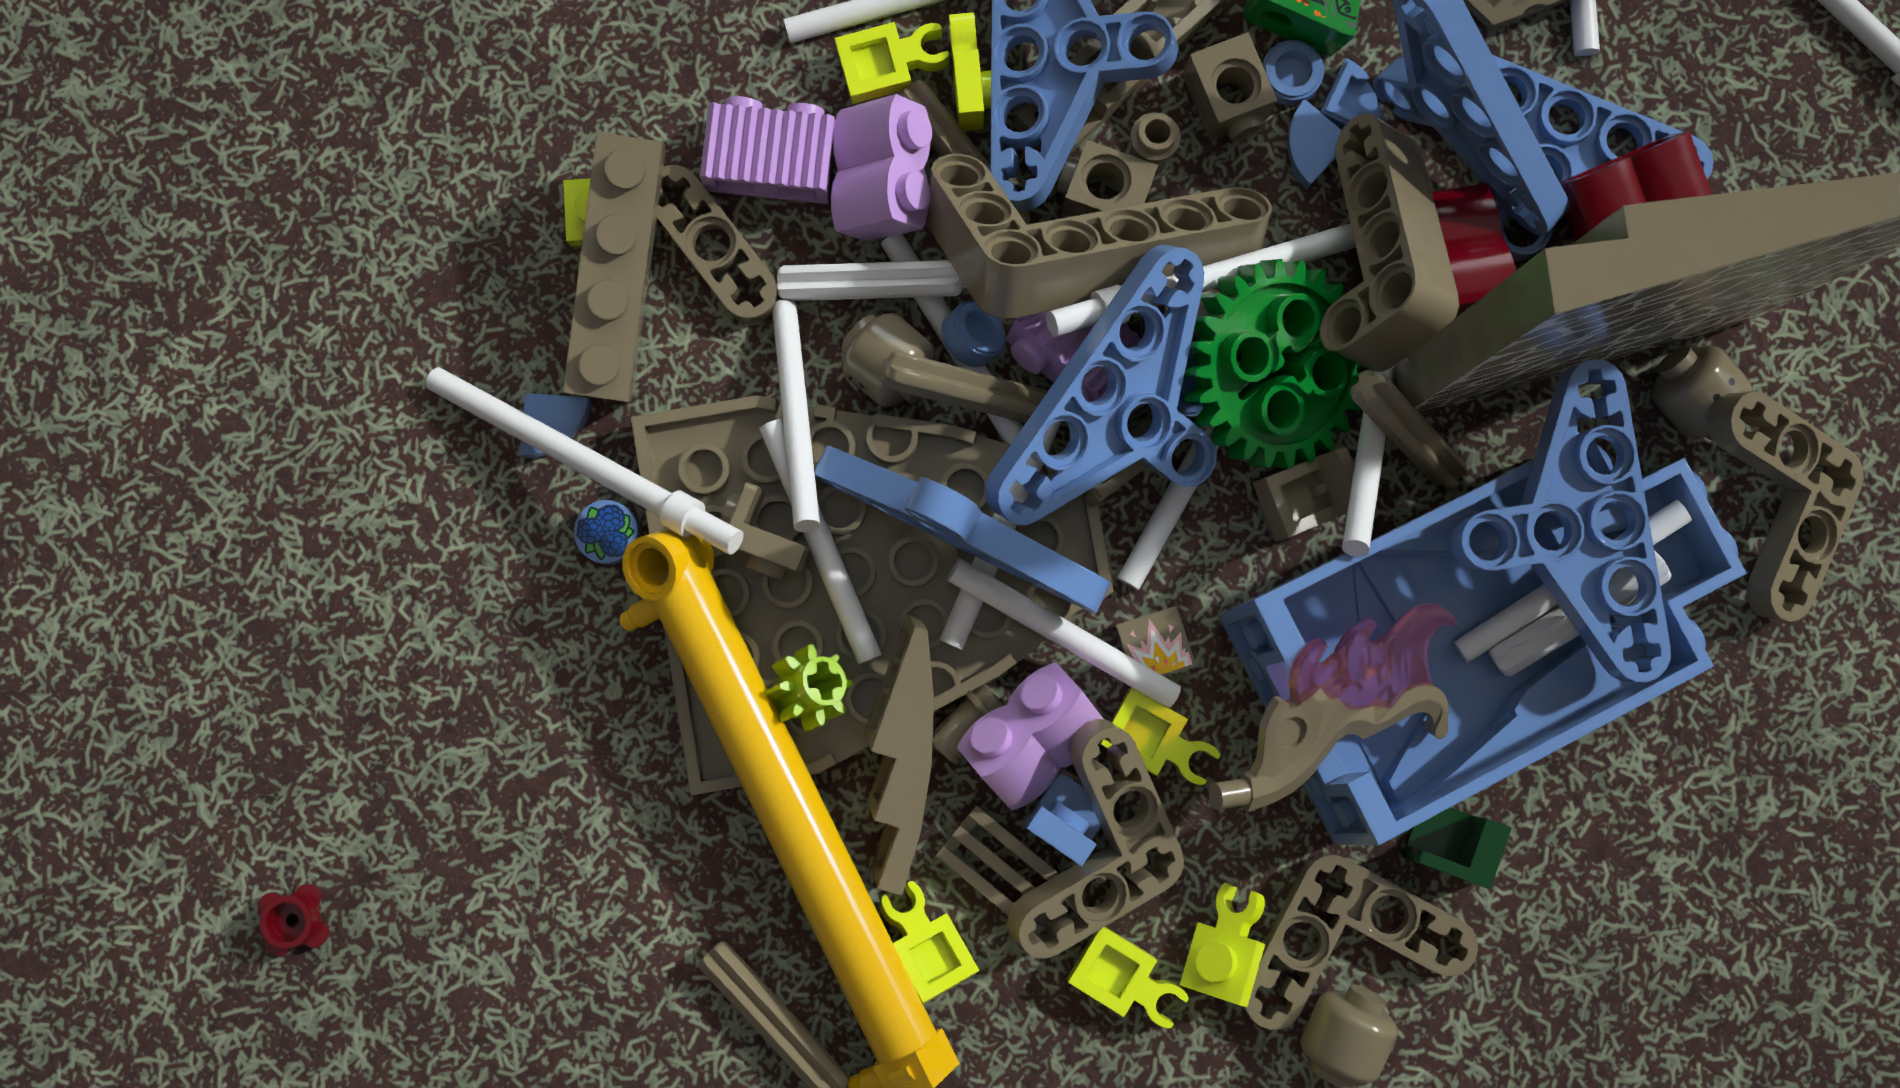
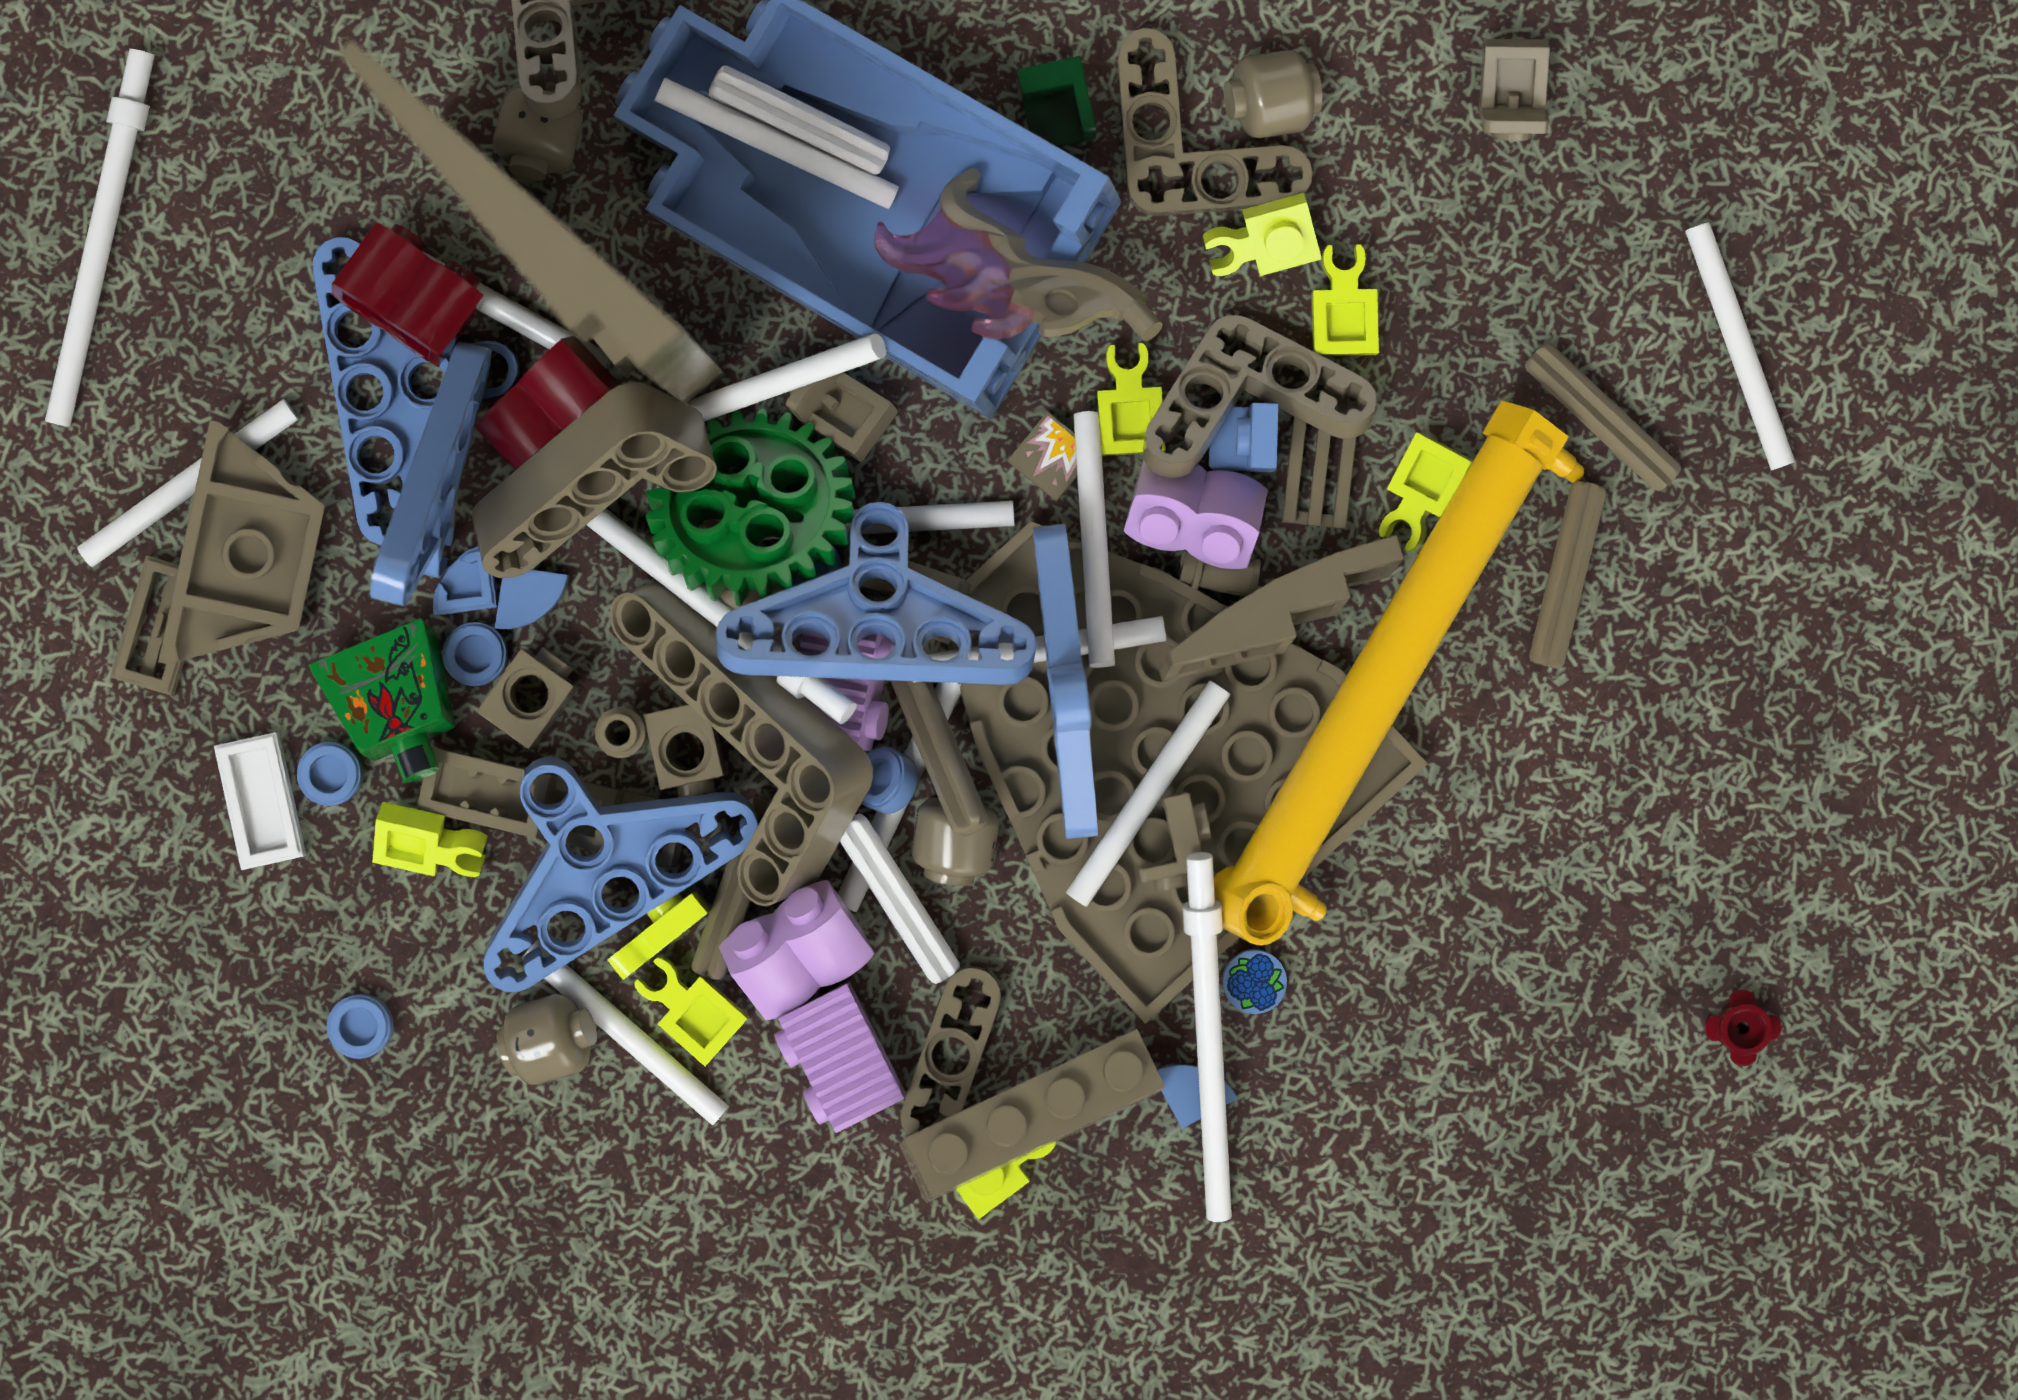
camera: 120 degrees left, 5 degrees up
(795, 417) = (1055, 883): white bar -> none
(809, 688) = (1277, 721): lime gear -> none
(1408, 429) = (739, 359): dark tan axle -> none
(1585, 560) = (710, 190): medium blue beam -> none

